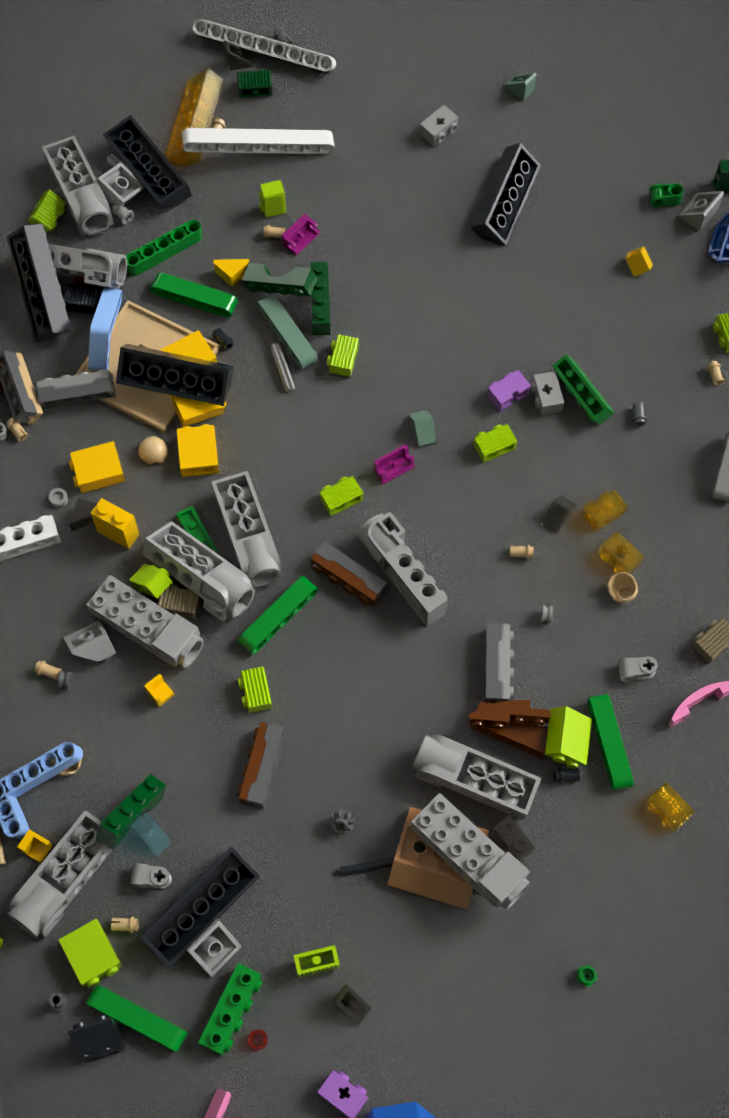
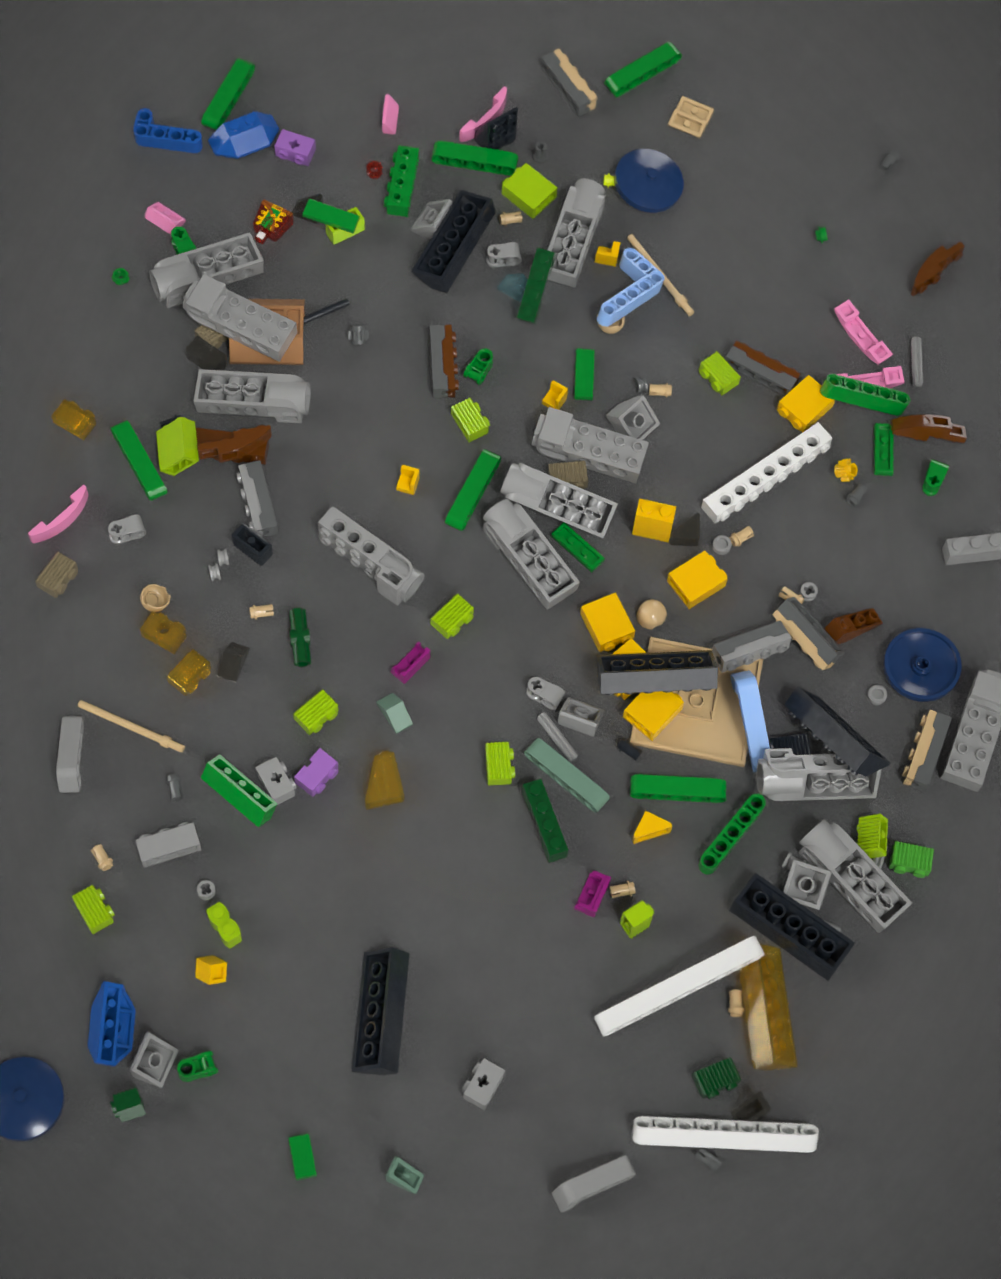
camera: 160 degrees right, 0 degrees up
(23, 190) = (911, 859): none -> bright green brick
(36, 498) = (741, 536): none -> tan pin
(78, 1091) = (468, 131): none -> bright pink slope
(118, 712) = (584, 374): none -> green tile
(151, 580) = (599, 479): lime brick -> none
(227, 744) = (479, 369): none -> green piece
(255, 375) = (580, 716): none -> light grey slope
(280, 404) = (546, 693): none -> light grey piece
(297, 282) = (615, 822): dark green arch -> none
(331, 964) = (331, 216): none -> green tile
(339, 642) = (408, 479): none -> yellow panel
(348, 574) = (421, 543): piece -> none
(377, 38) = (592, 1182): none -> light grey beam
(399, 996) = (271, 222): none -> torso
(450, 366) = (384, 782): none -> clear yellow slope
(489, 947) = (223, 261): none -> light grey brick
(491, 515) = (300, 637): none -> dark green piece
(506, 990) = (181, 240): none -> green piece
(515, 613) = (252, 544): none -> black brick
(518, 1045) = (164, 217): none -> bright pink slope
(558, 601) = (214, 572): none -> light grey bush
(595, 119) = (302, 1156): none -> green tile
(620, 289) = (222, 923): none -> lime brick
(629, 330) = (200, 892): none -> light grey bush
(640, 457) = (165, 741): none -> tan bar
(655, 366) = (168, 844): none -> light grey brick

